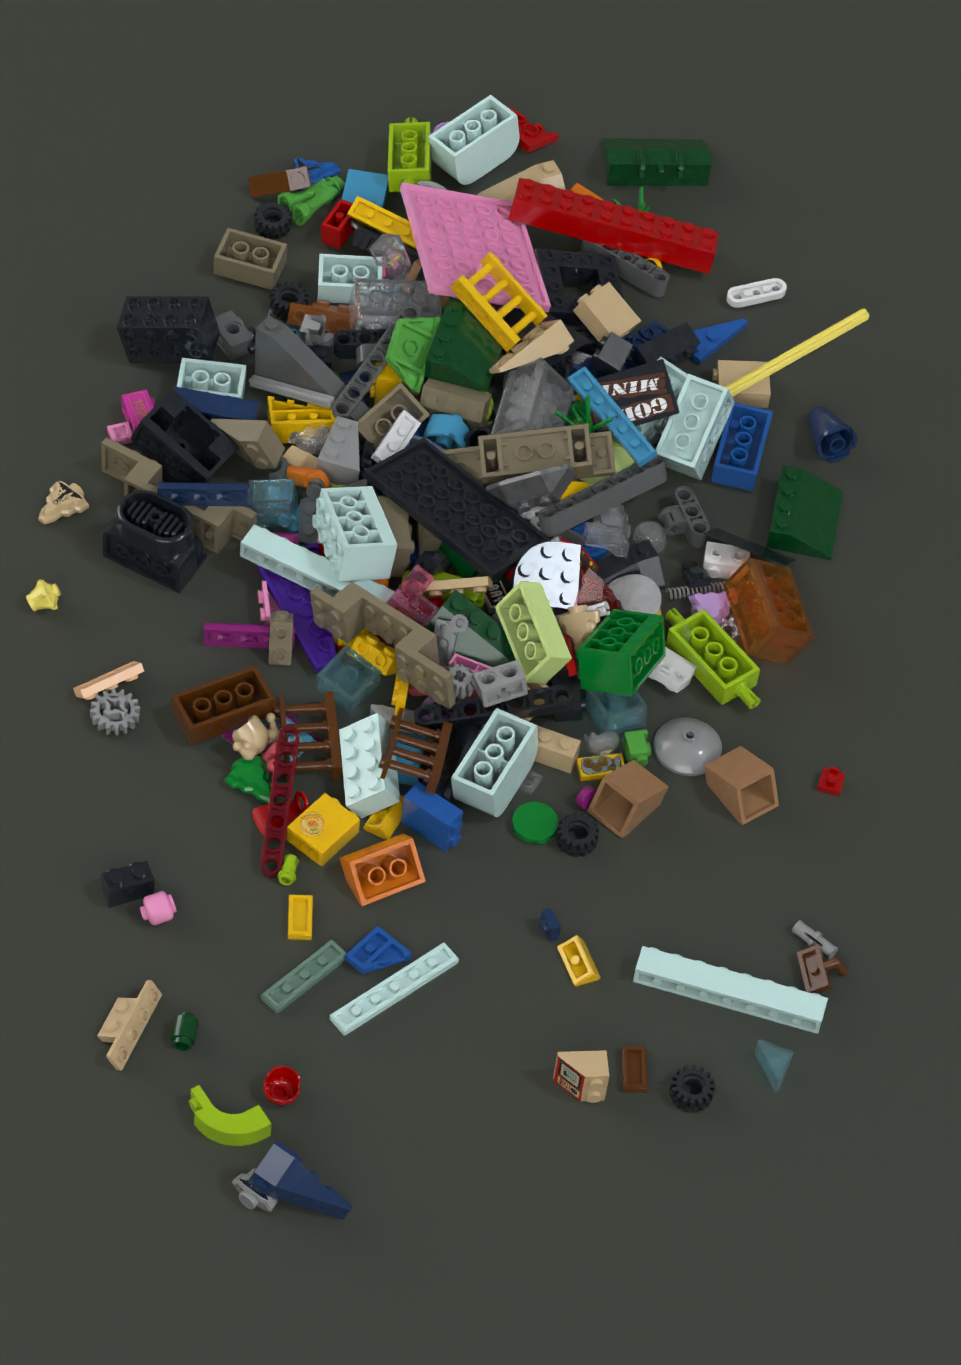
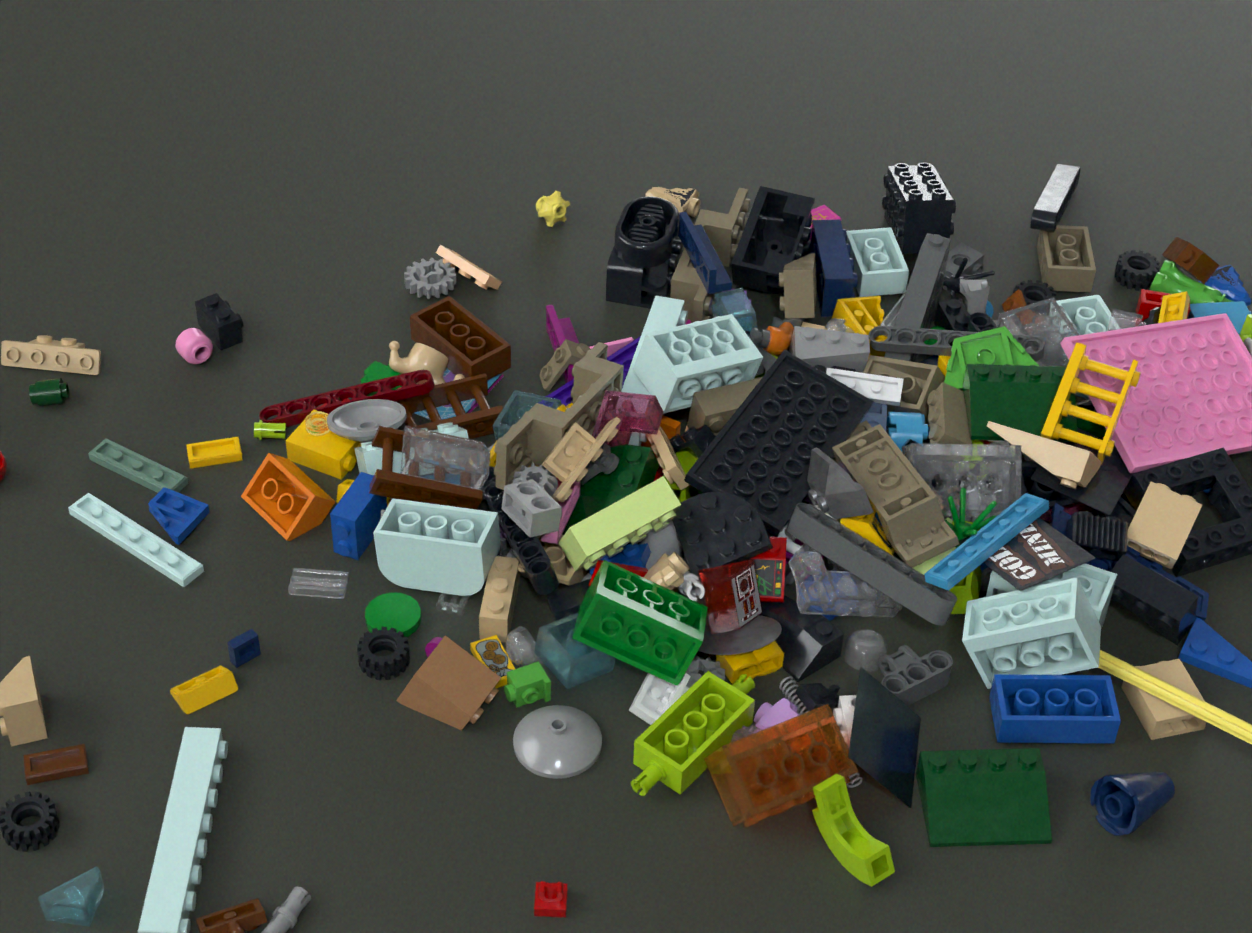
camera: 80 degrees right, 10 degrees down
(175, 233) = (1055, 198): none -> beam
(328, 774) = (362, 418): none -> light grey dish
(420, 727) = (444, 458): none -> clear slope
(457, 637) = (573, 454): none -> tan bracket
(490, 851) = (318, 579): none -> clear tile
(743, 784) = (504, 796): medium nougat slope -> none
(830, 597) = (847, 839): none -> lime arch

